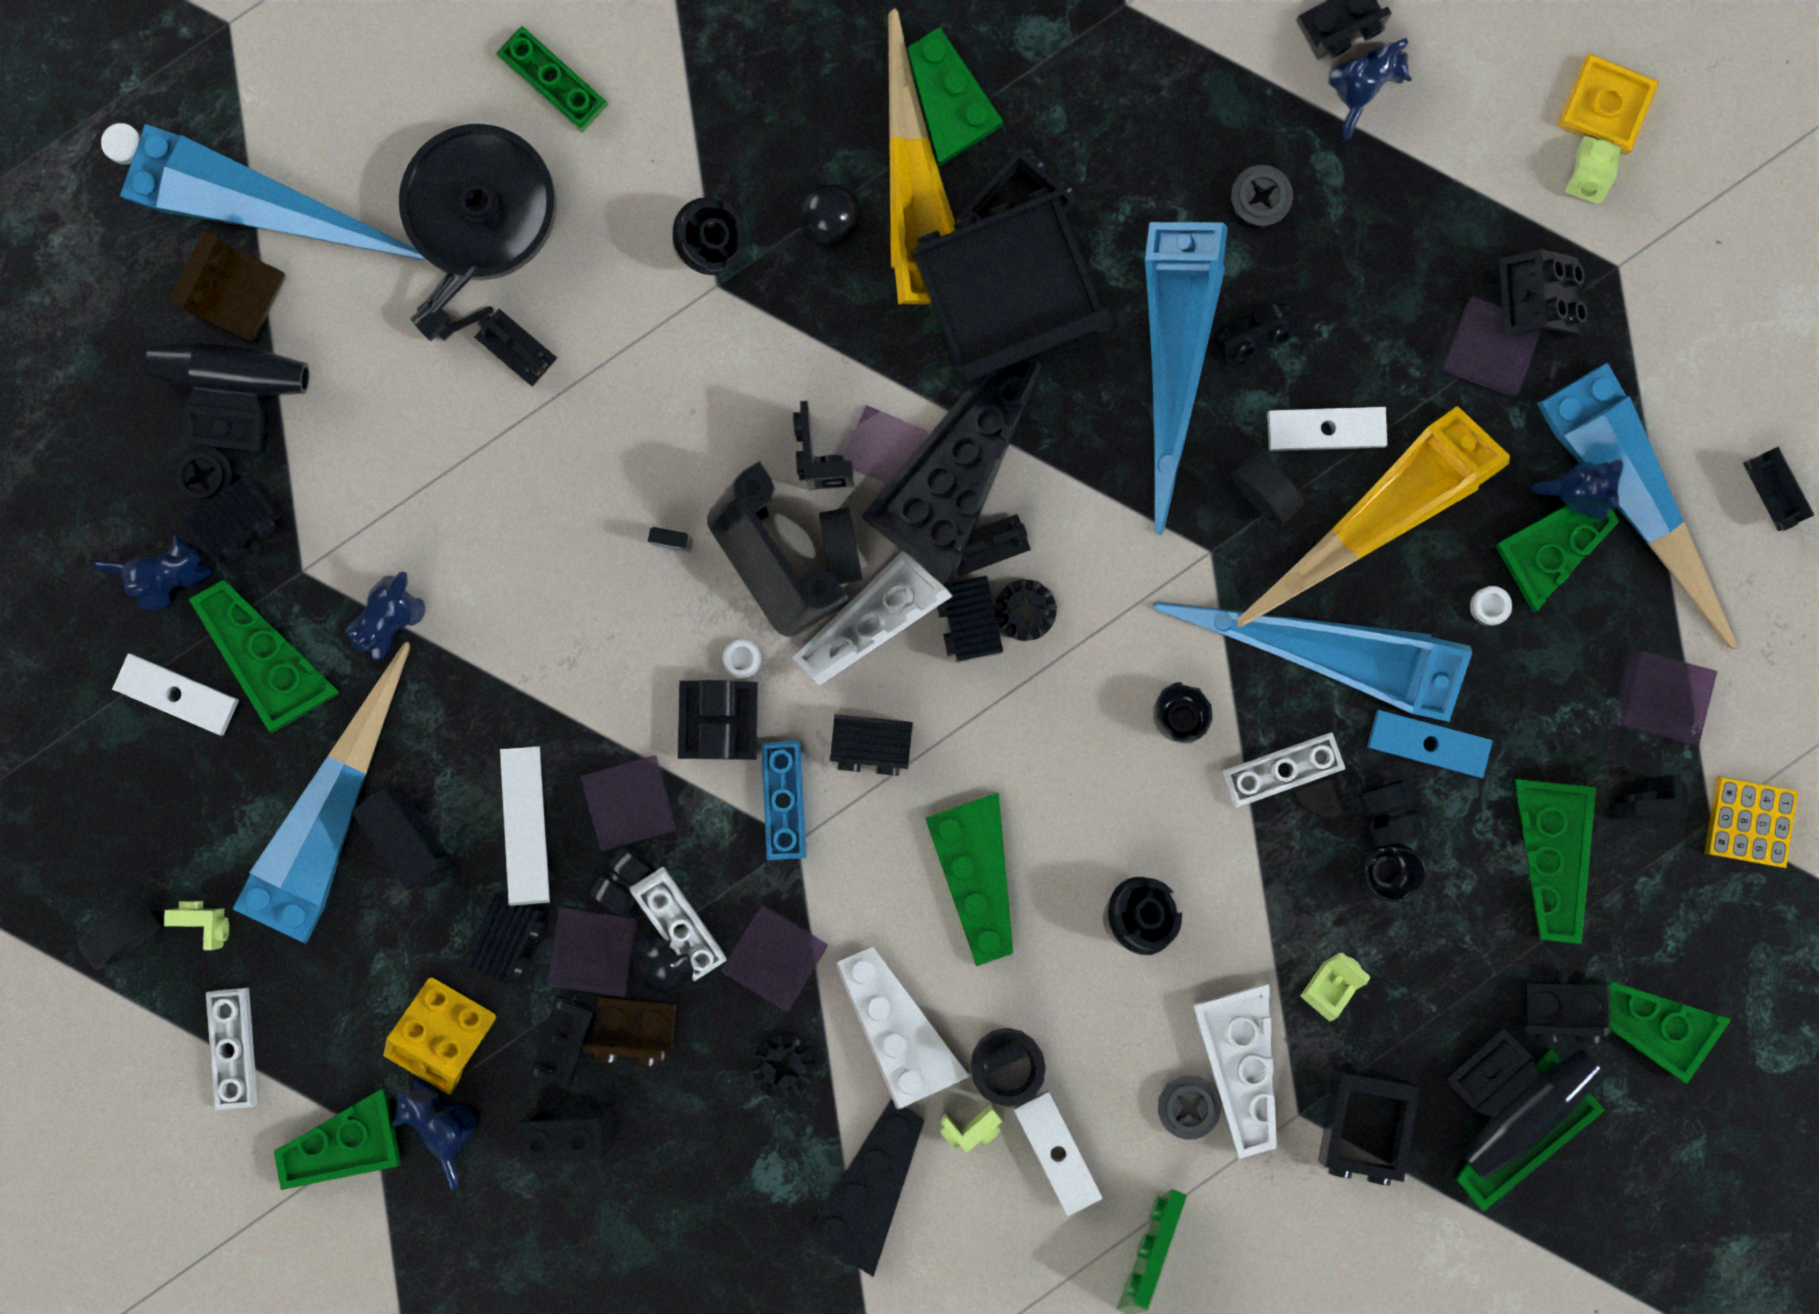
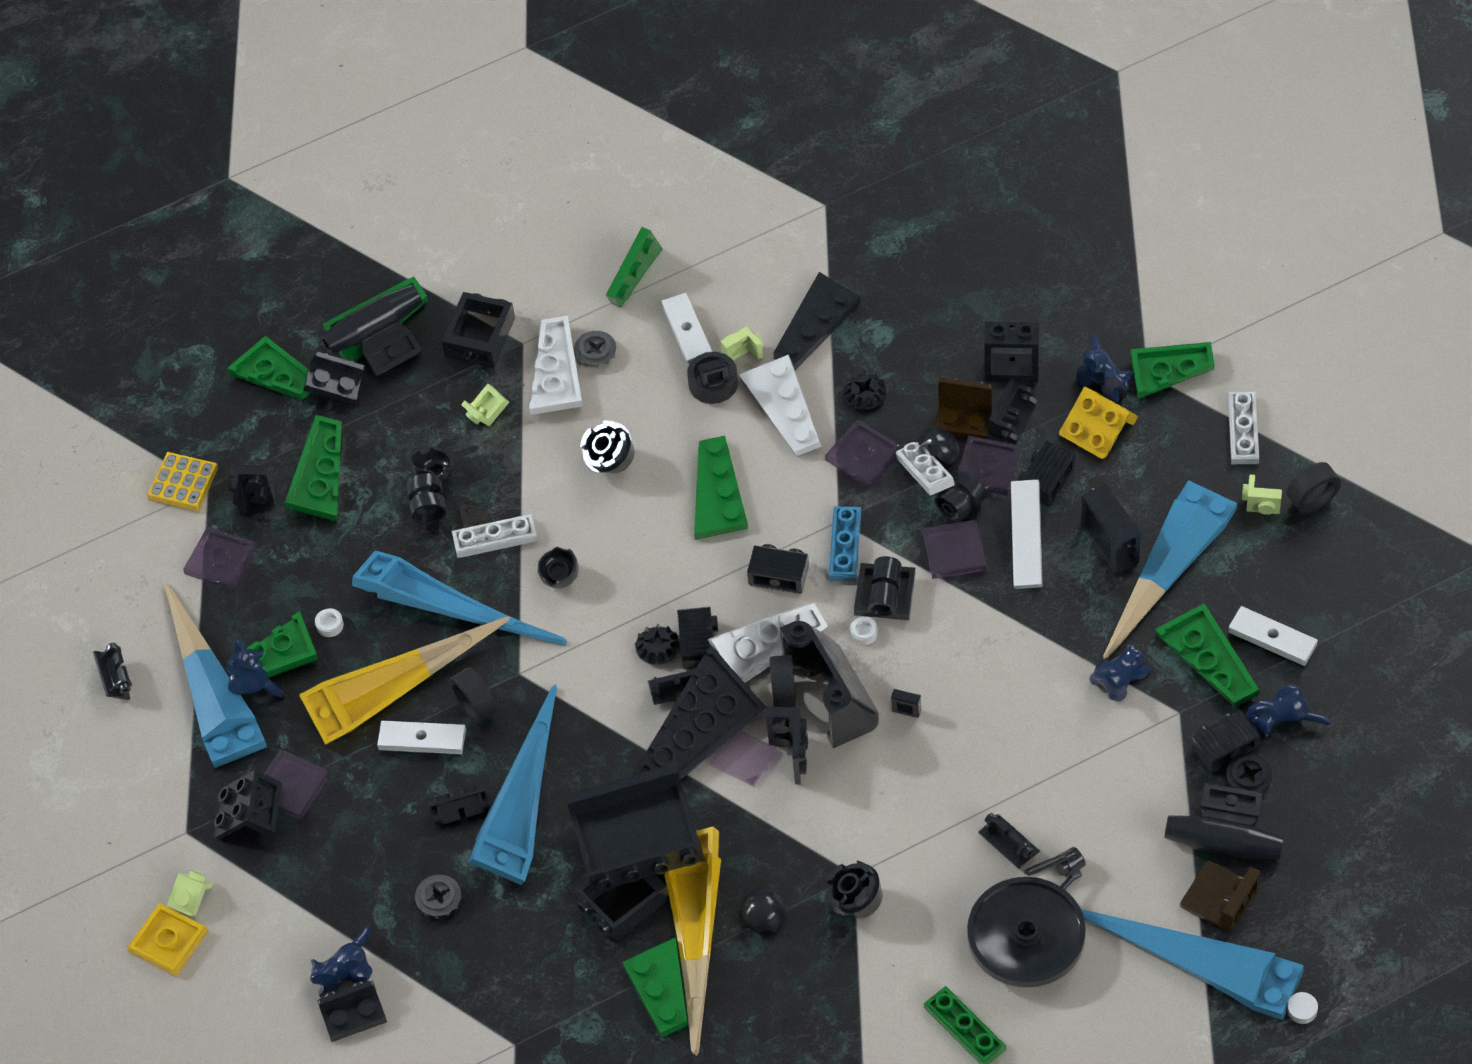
camera: 165 degrees left, 30 degrees down
(1450, 749) = (391, 540): dark azure tile -> none

